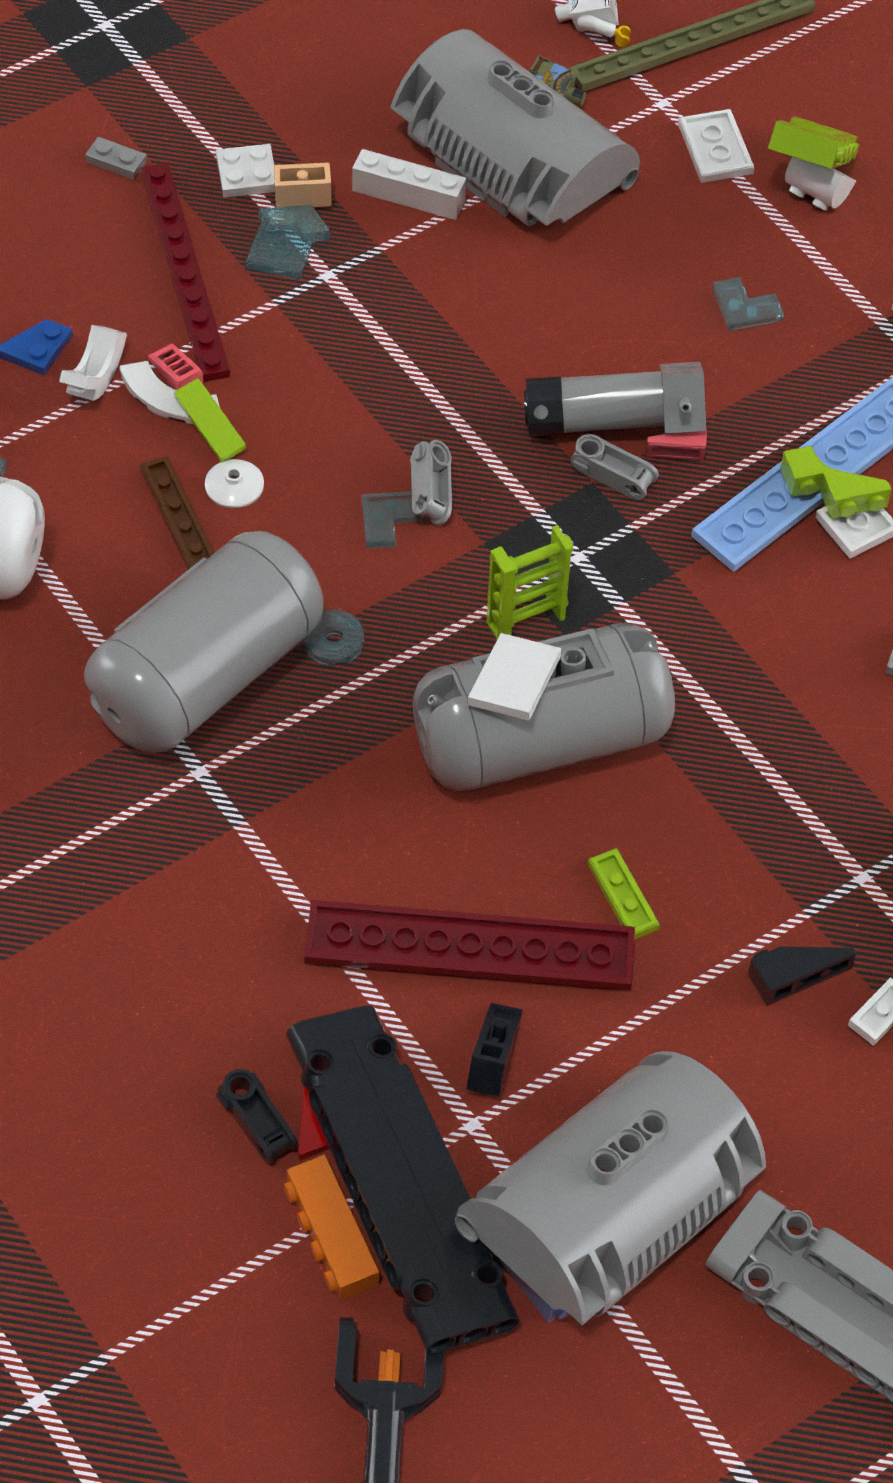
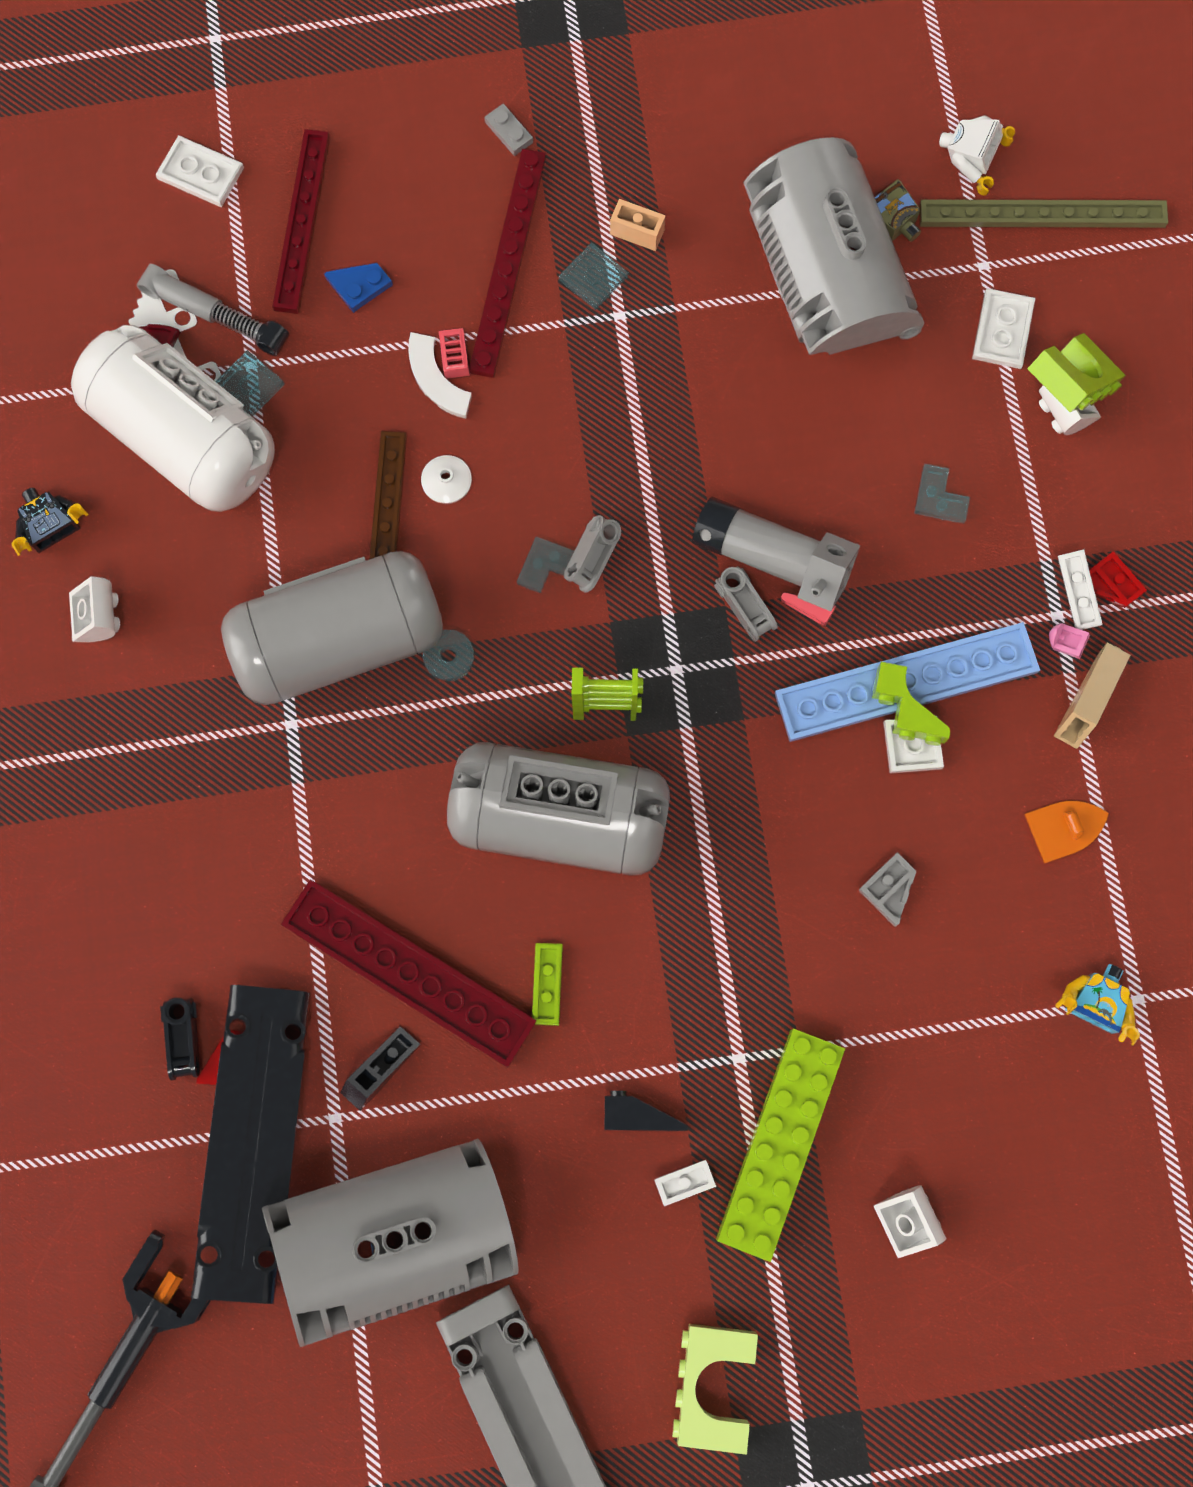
camera: 30 degrees right, 20 degrees up
(97, 364) = (391, 326): white arch -> none
(209, 420) = (452, 416): lime tile -> none
(246, 170) = (604, 185): white plate -> none
(300, 218) = (619, 252): clear light blue tile -> none
(332, 1228) = (186, 1154): orange brick -> none
(409, 184) = (725, 259): white brick -> none
(514, 676) = (528, 793): white tile -> none

